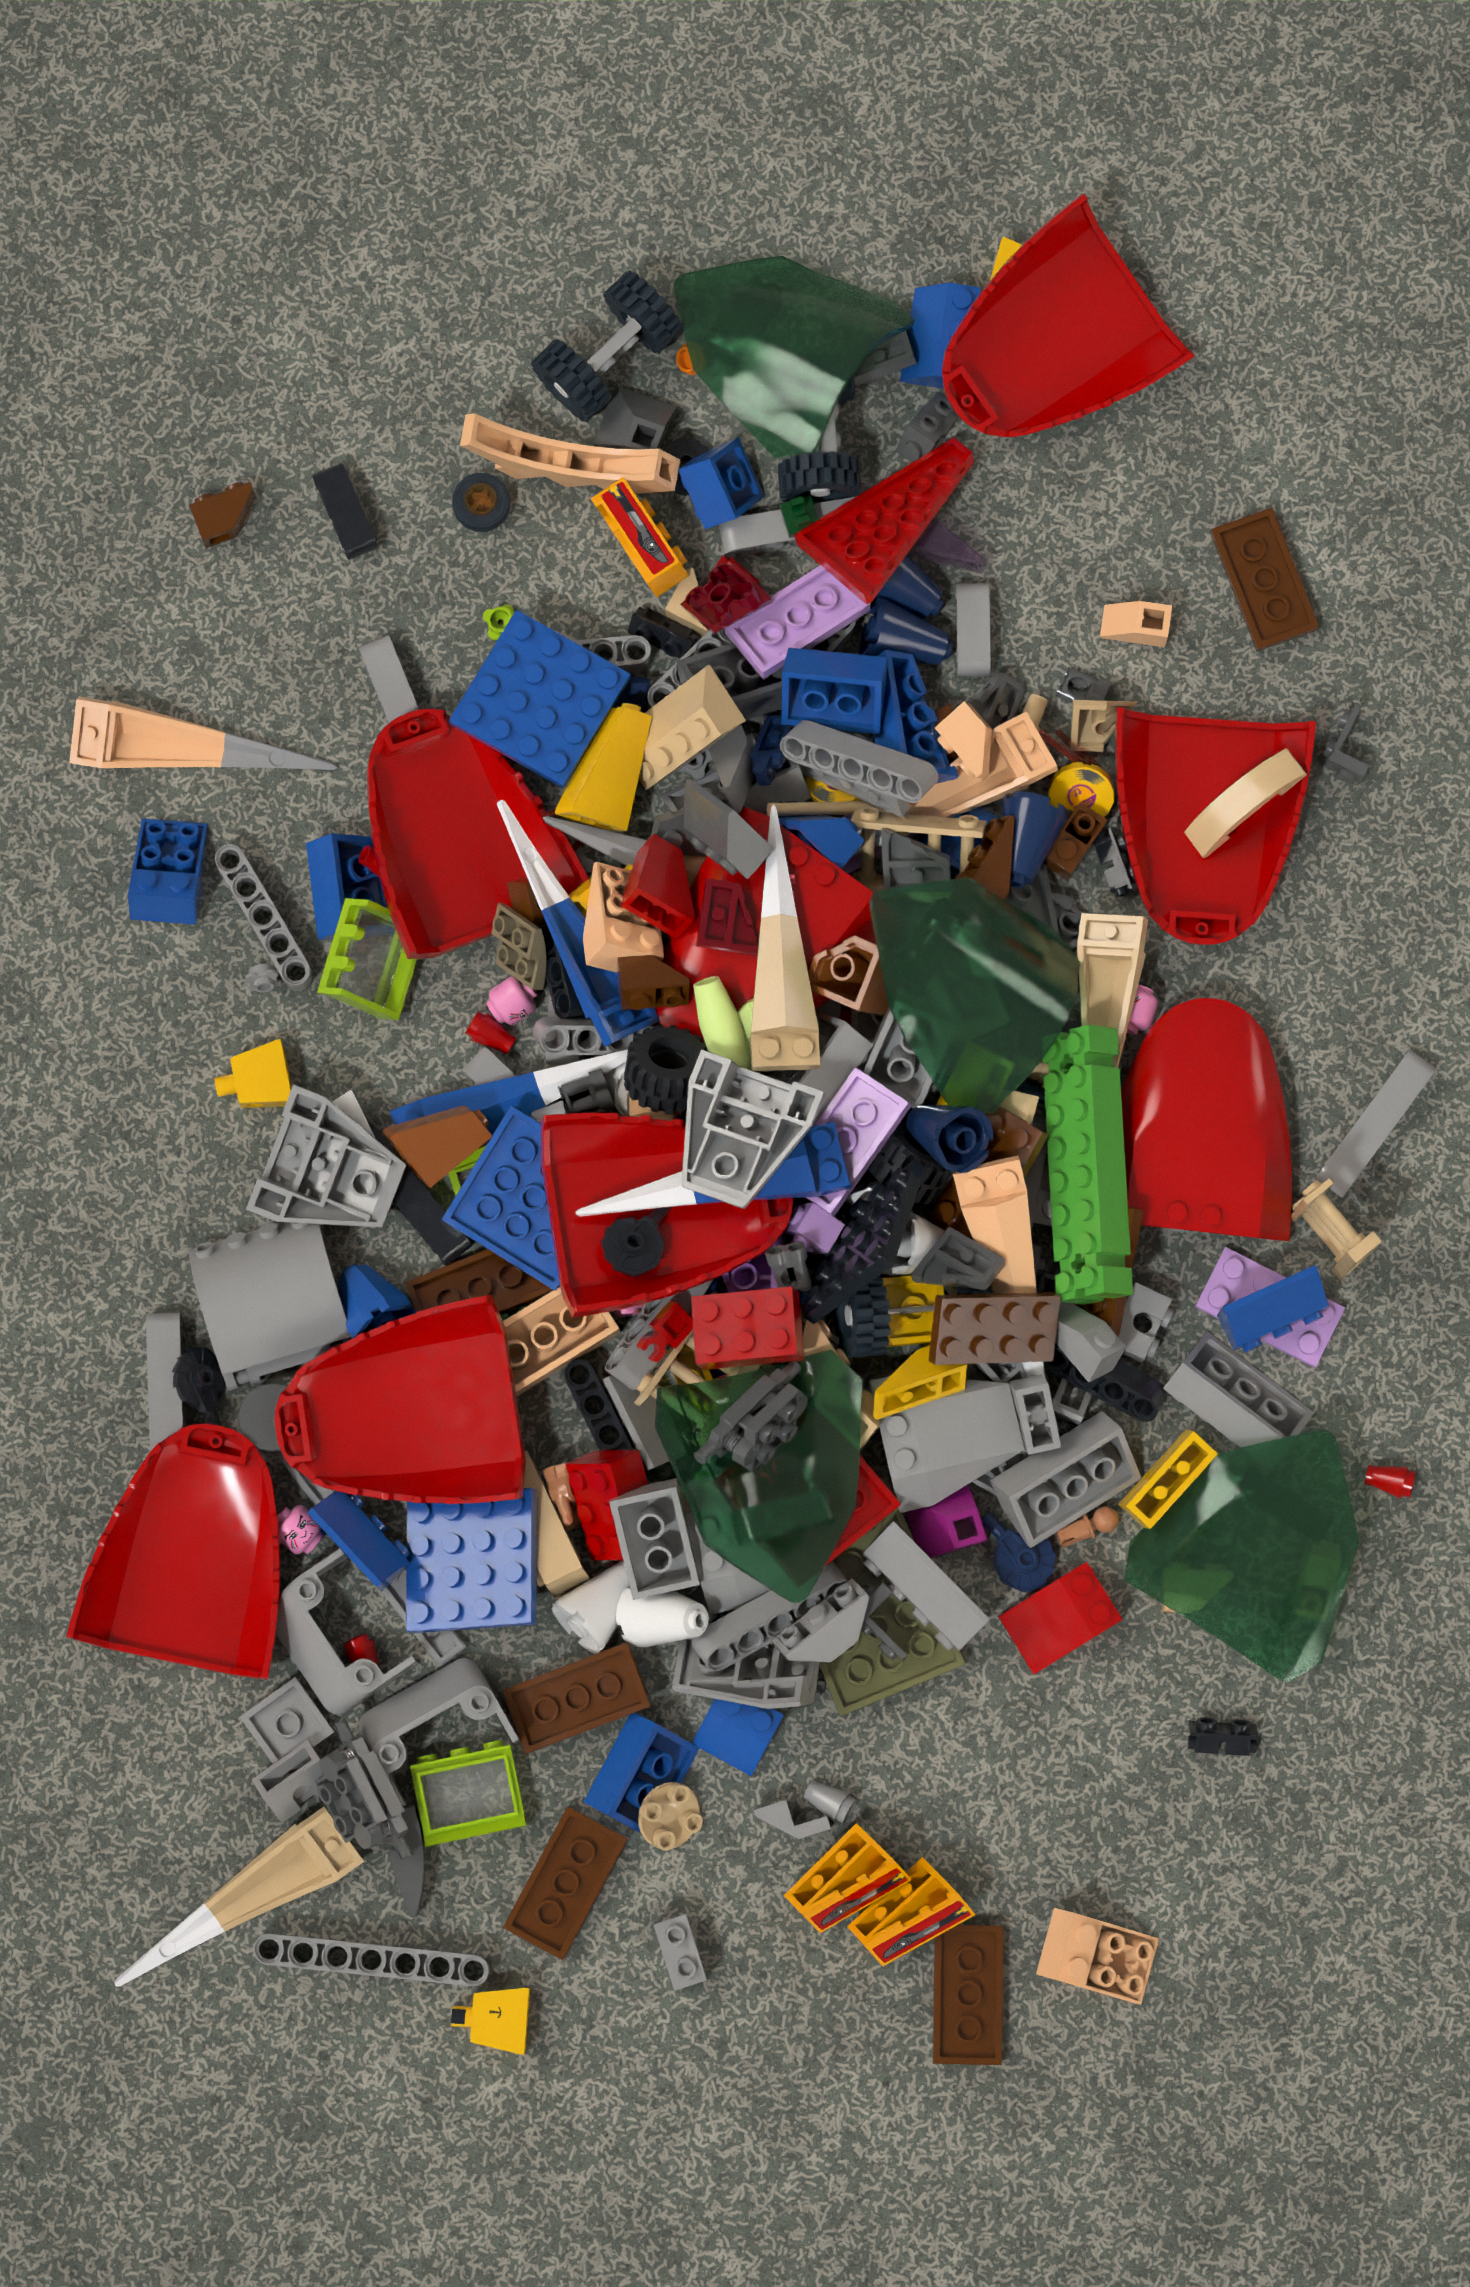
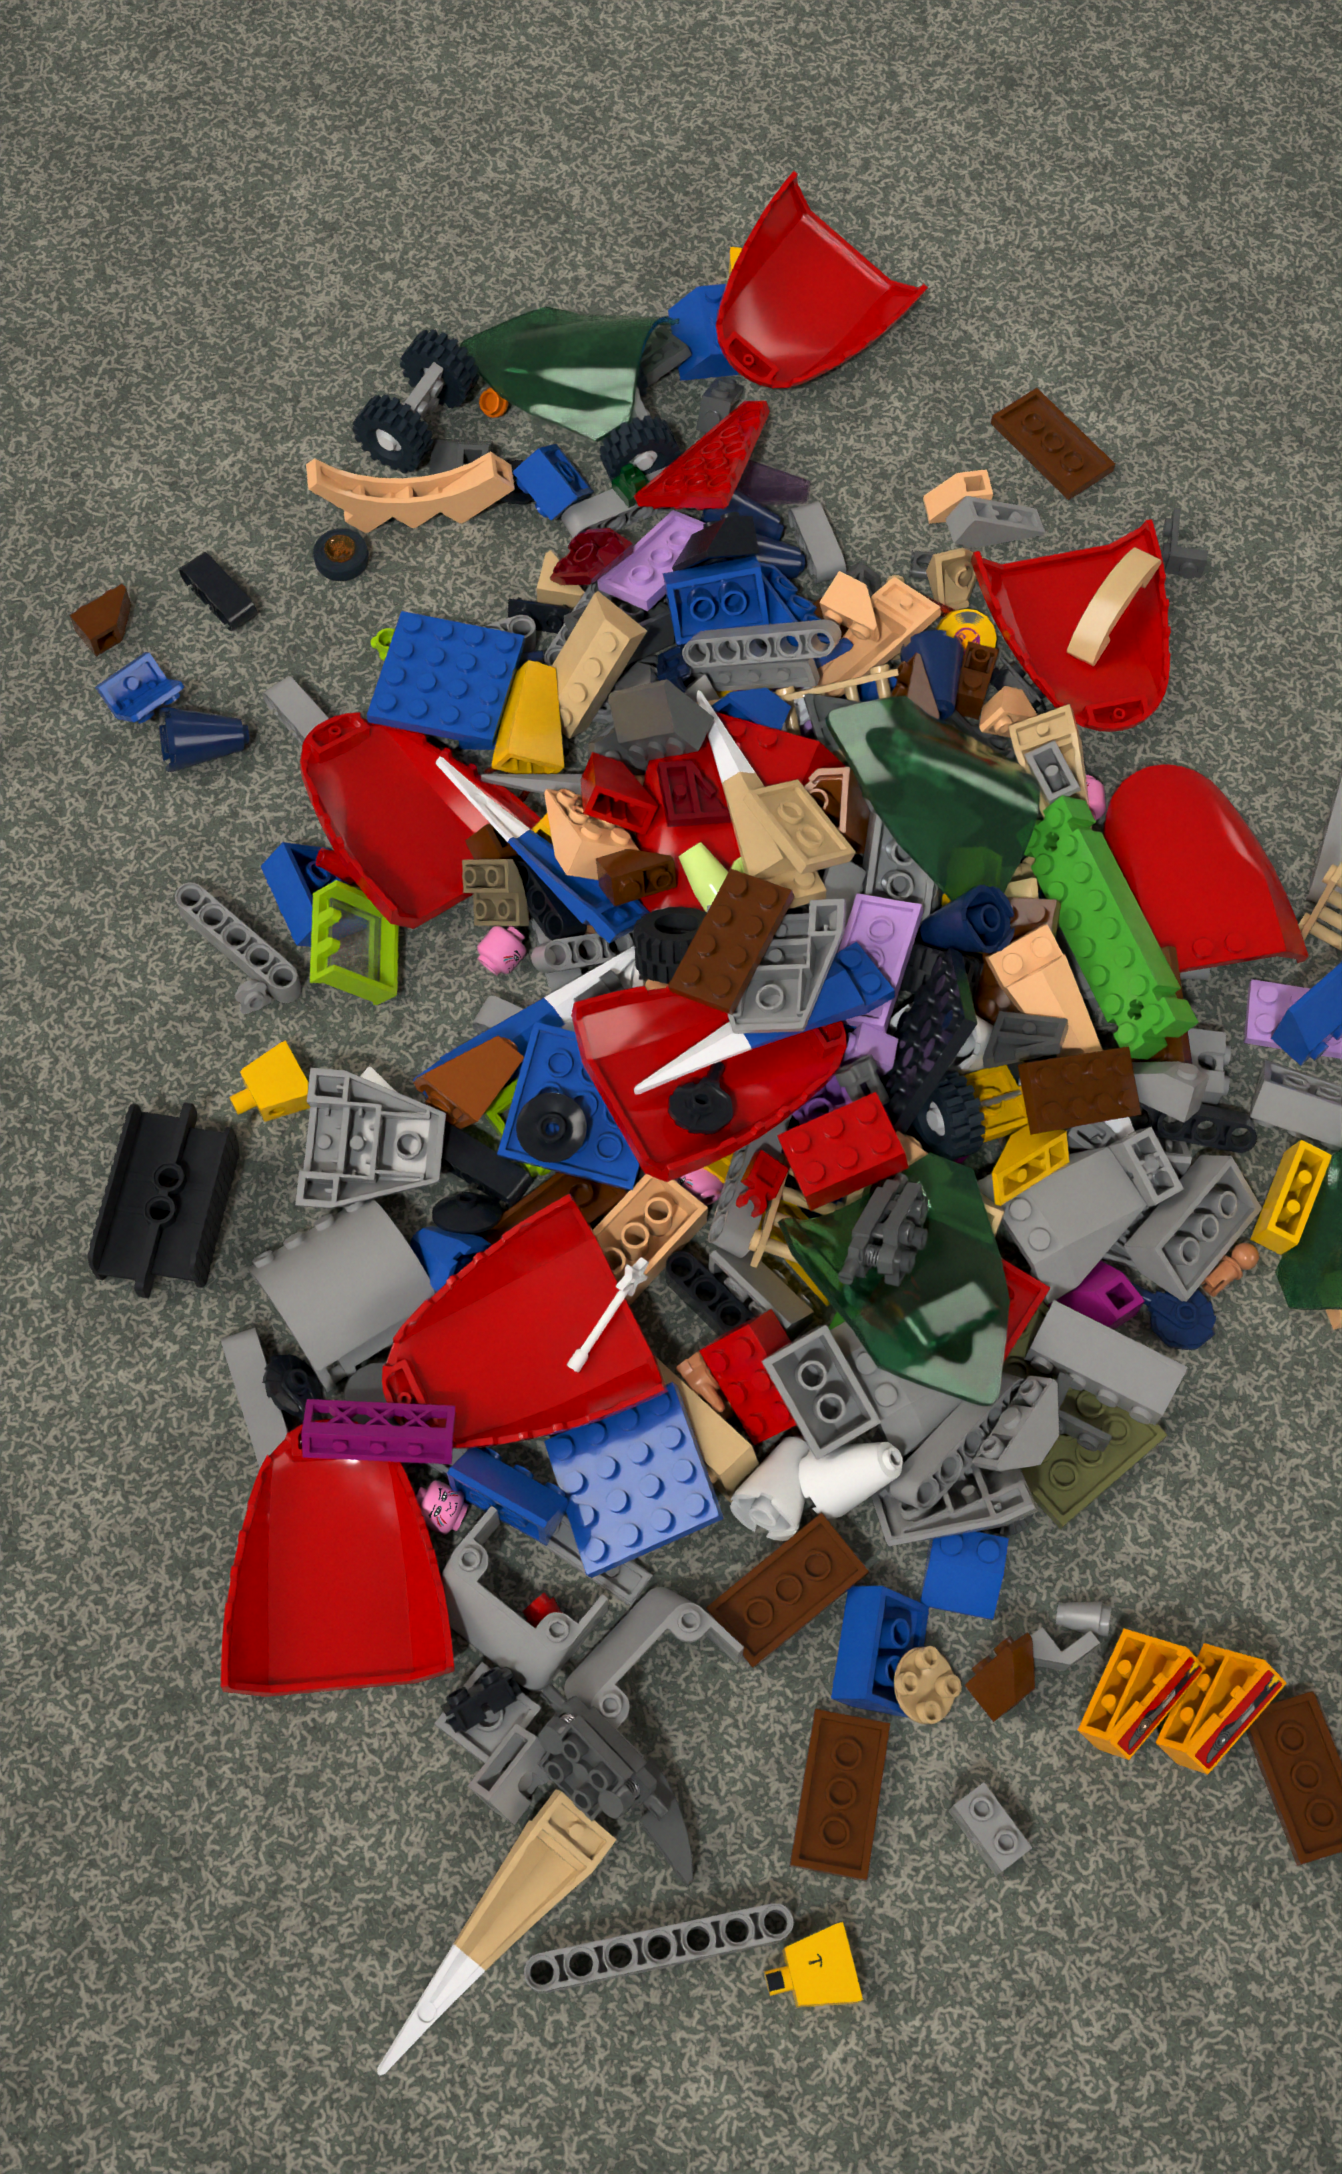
camera: 20 degrees left, 15 degrees down
(129, 1117) = (149, 1153): none -> black piece
(132, 737) = (64, 822): light nougat plate -> none
(167, 871) = (132, 930): blue slope -> none
(238, 612) = (138, 690): none -> blue bracket
(257, 1464) = (378, 1438): none -> magenta fence
(282, 682) = (198, 737): none -> dark blue cone
(295, 1704) = (467, 1703): none -> black hinge
(401, 1261) = (467, 1213): none -> black dish
(468, 1793) = (705, 1729): window -> none
(479, 1220) = (547, 1110): none -> black dish
(490, 1033) = (486, 983): red cone -> none
(519, 1387) = (627, 1285): none -> white piece
(640, 536) = (494, 534): wedge -> none
(708, 1097) = (731, 941): none -> reddish brown plate
(737, 1831) = (1005, 1679): none -> reddish brown slope
(813, 995) = (799, 826): none -> tan plate
(851, 633) = (719, 542): none -> black slope
(1060, 1618) = (1242, 1361): red slope -> none
(1091, 892) = (1004, 709): none -> light nougat slope
(1095, 992) = (1051, 772): none -> light grey slope
(1165, 661) = (990, 522): none -> light grey slope

